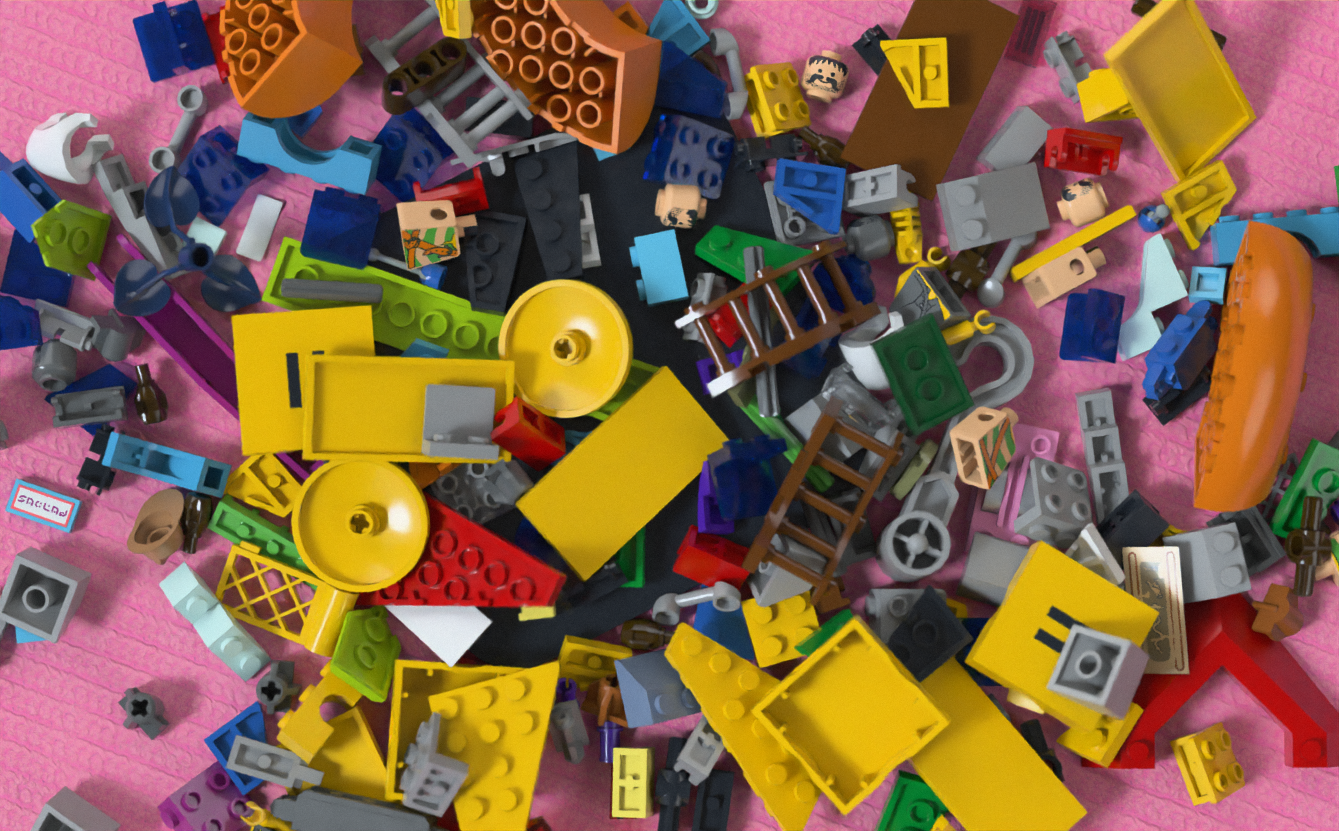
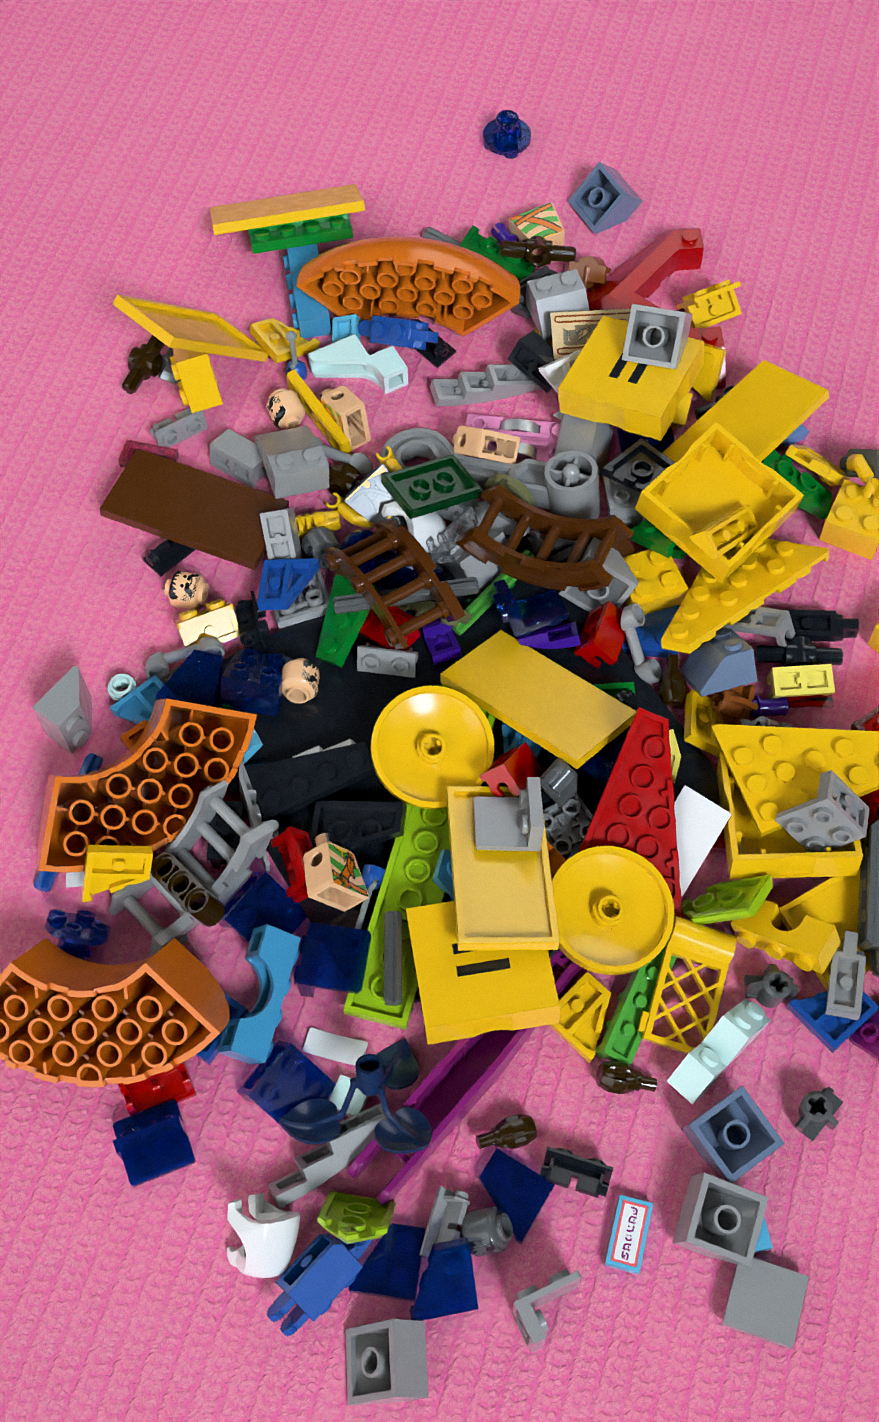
camera: 90 degrees left, 25 degrees down
(89, 407) = (526, 1185): dark grey hinge -> none
(116, 335) = (450, 1170): dark grey piece -> none
(122, 619) = (733, 1135): none -> sand blue slope
(158, 527) = (633, 1110): medium nougat piece -> none
(166, 464) = (575, 1102): dark azure arch -> none
(194, 104) = (215, 1117): light grey bar -> none
(660, 268) = (355, 692): medium azure brick -> none
(802, 713) = (726, 531): none -> yellow slope
(825, 148) = (247, 581): dark brown piece -> none
(921, 69) = (181, 505): yellow wing -> none
(1060, 504) = (533, 394): light grey bracket -> none
(1082, 151) = (243, 413): red hinge -> none
(1092, 327) = (385, 391): clear blue bracket -> none

